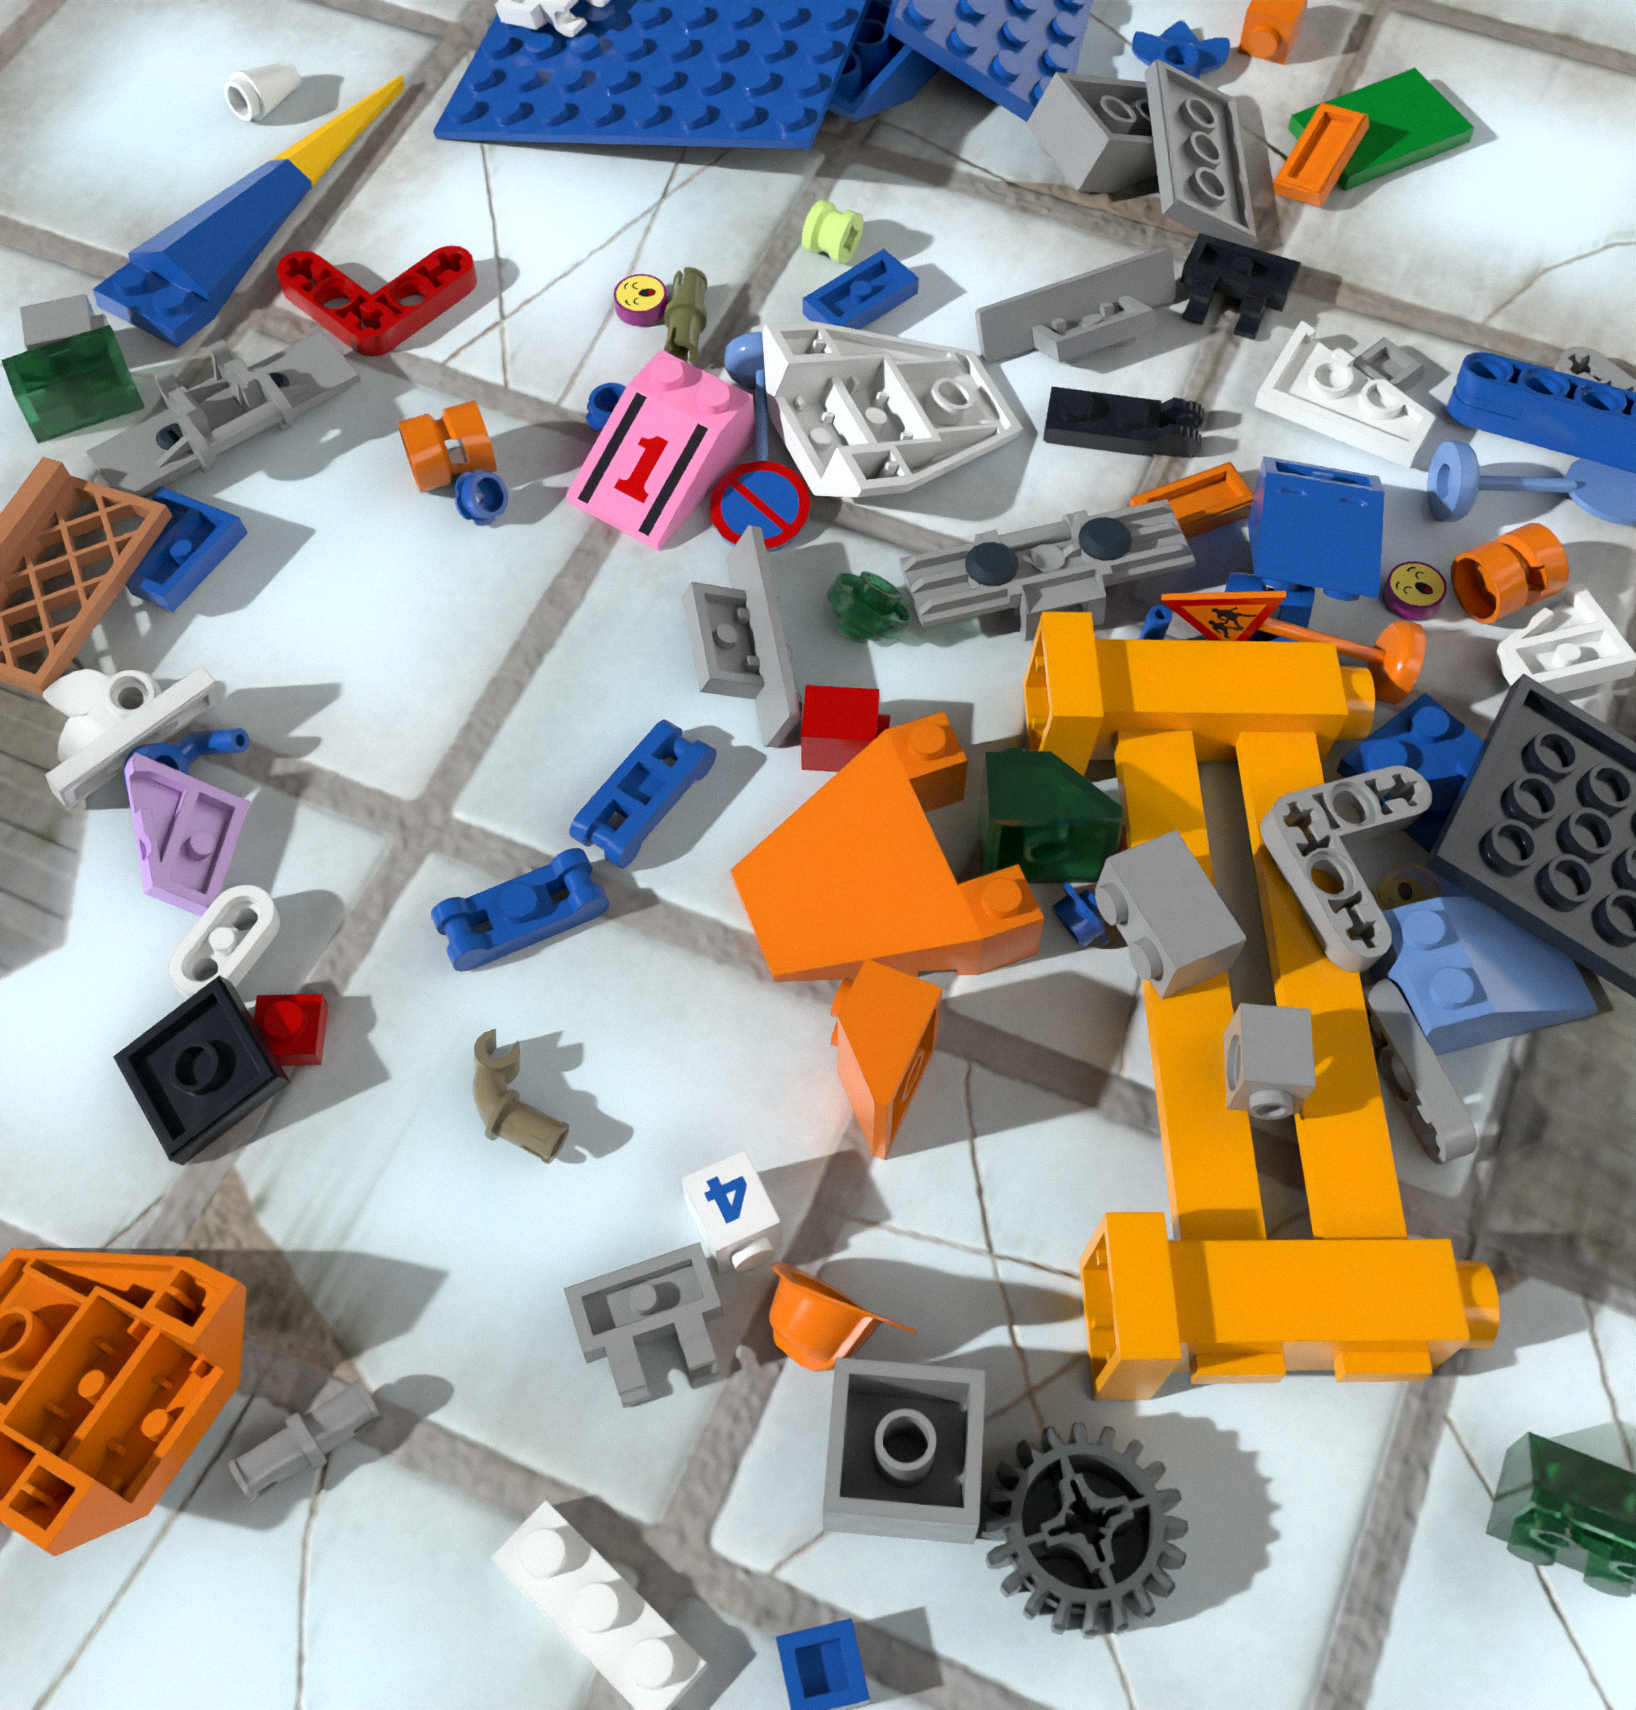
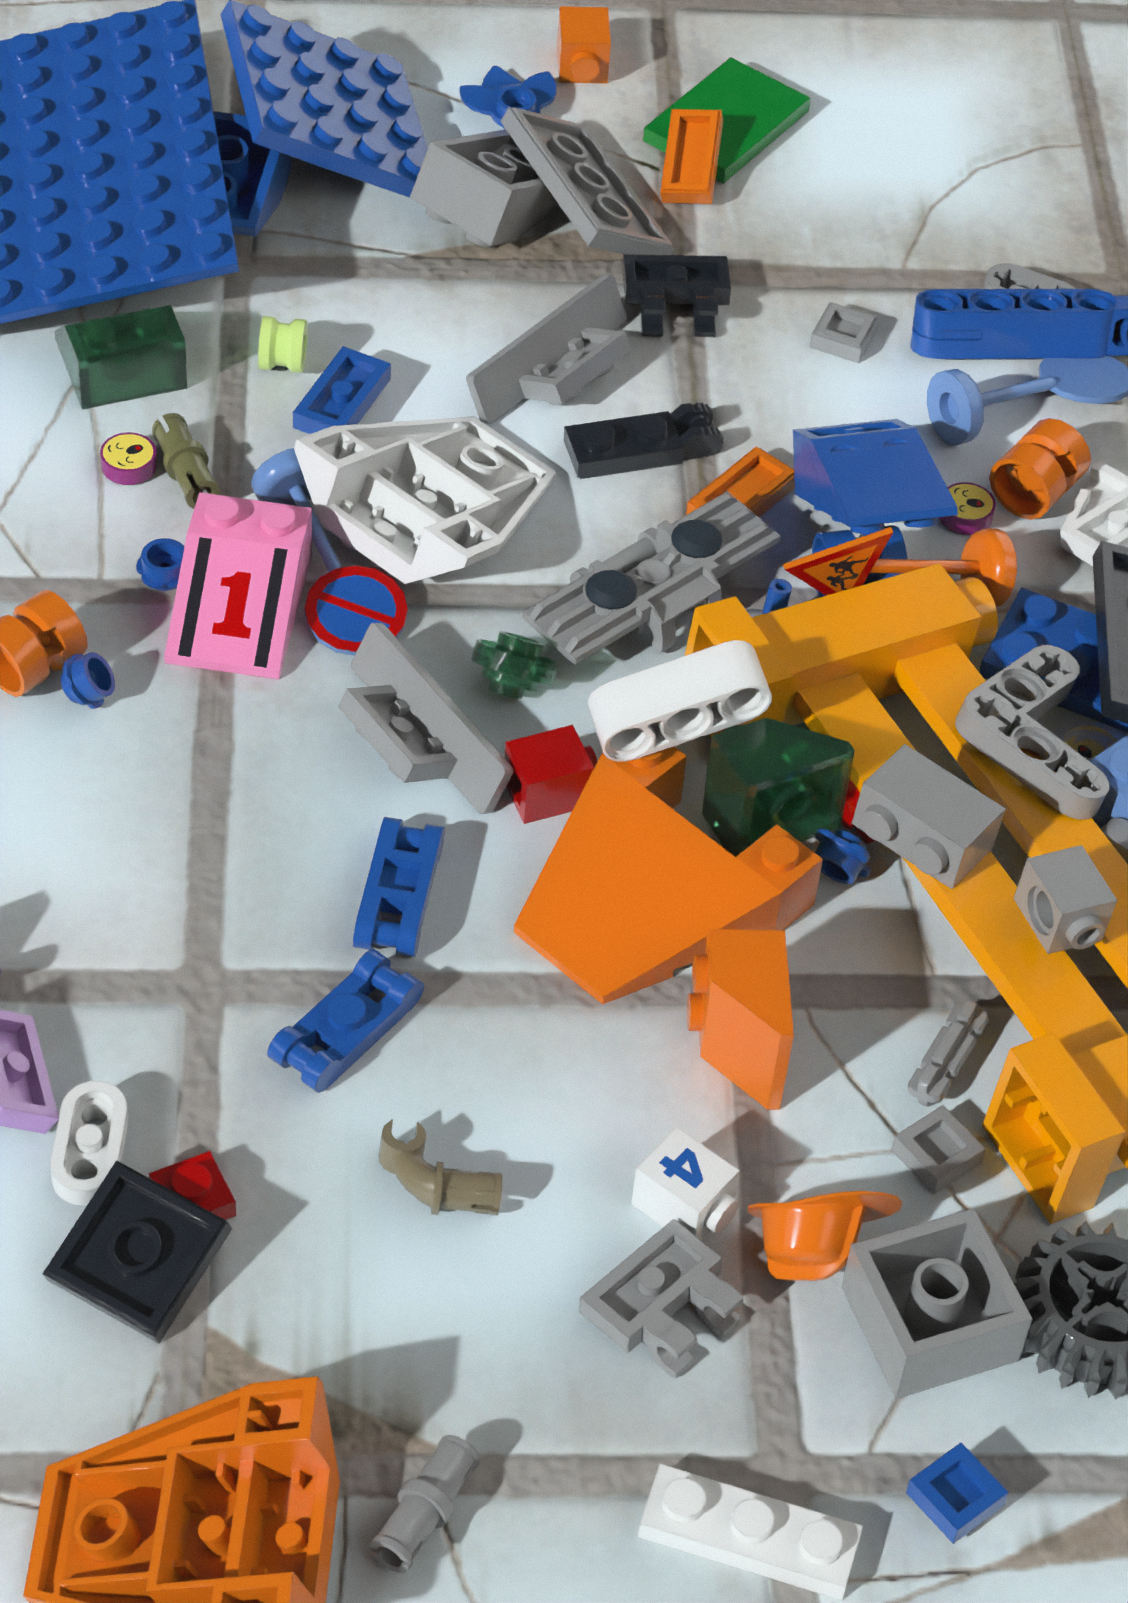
camera: 30 degrees left, 10 degrees down
(685, 203) = (124, 356): none -> clear green slope
(970, 704) = (679, 701): none -> white beam
(1016, 1270) = (938, 1149): none -> light grey tile
(1081, 1169) = (948, 1053): none -> light grey axle
(1338, 400) = (814, 367): white wing -> none

